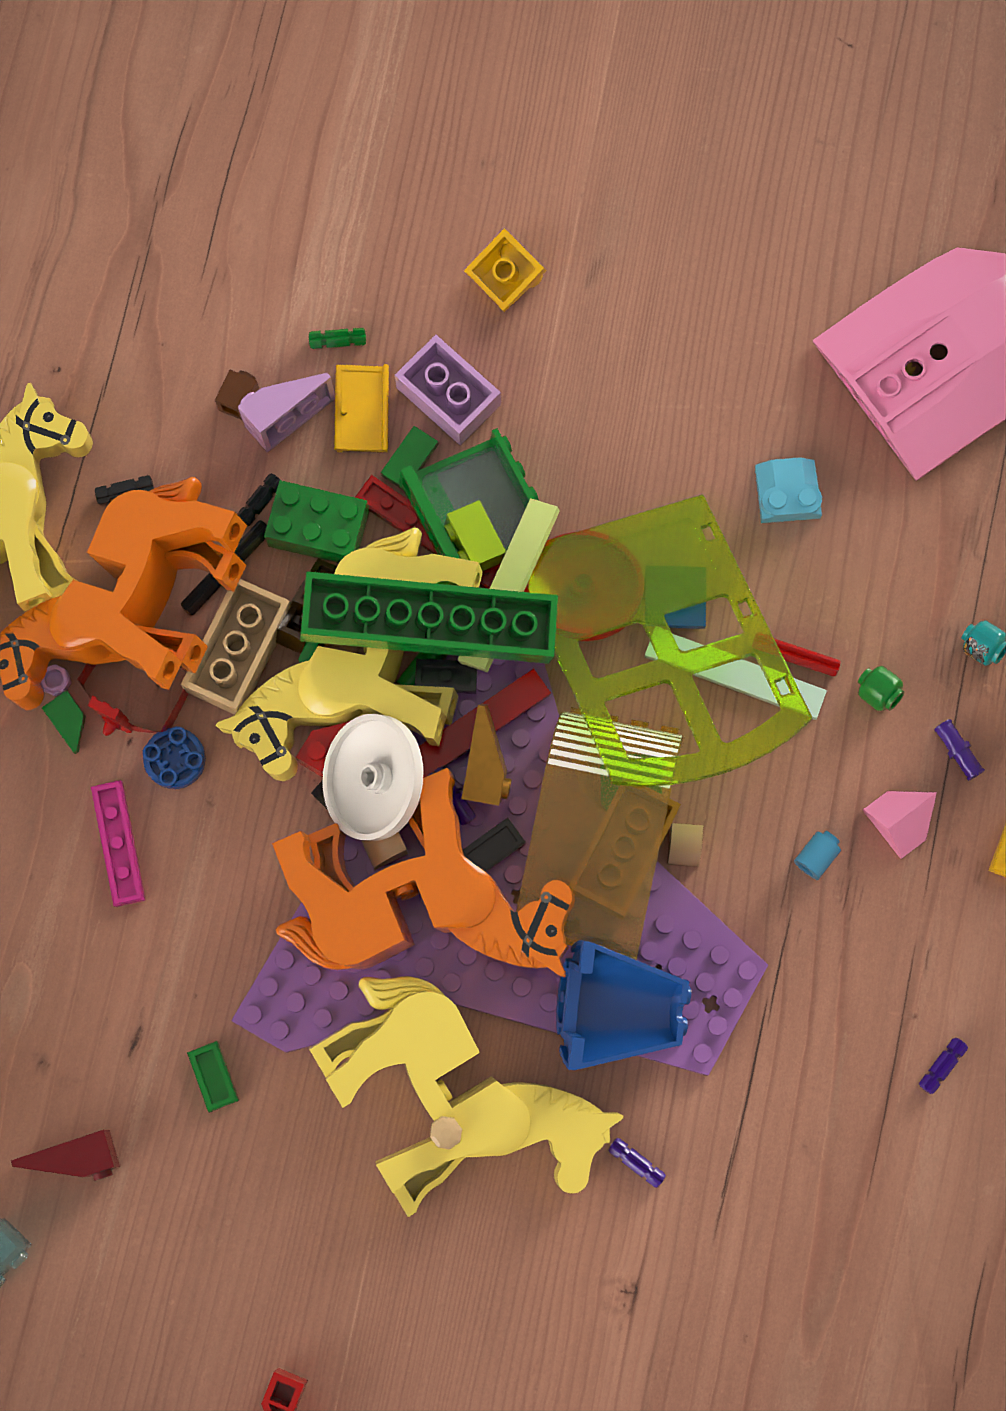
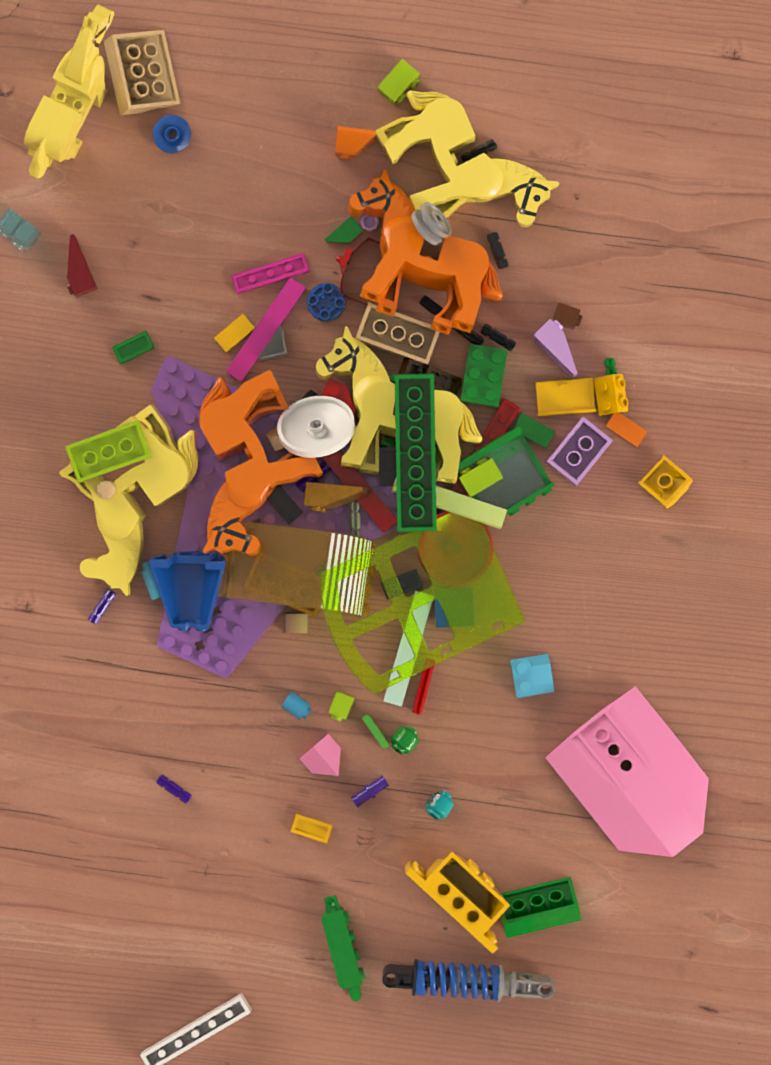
camera: 85 degrees right, 10 degrees up
(65, 569) = (431, 223): none -> light grey wheel
(207, 908) = (234, 333): none -> yellow tile
(208, 857) = (265, 329): none -> dark pink tile
(238, 839) = (275, 348): none -> dark grey slope
(364, 340) = (611, 394): none -> yellow bracket
(382, 1123) = (108, 451): none -> lime plate
(419, 324) = (626, 429): none -> orange tile
(525, 736) = (354, 519): none -> light grey axle
(601, 1075) = (150, 581): none -> medium azure cylinder
(626, 658) = (408, 581): none -> black plate
(821, 783) = (341, 706): none -> lime brick
(865, 732) = (375, 731): none -> bright green tile

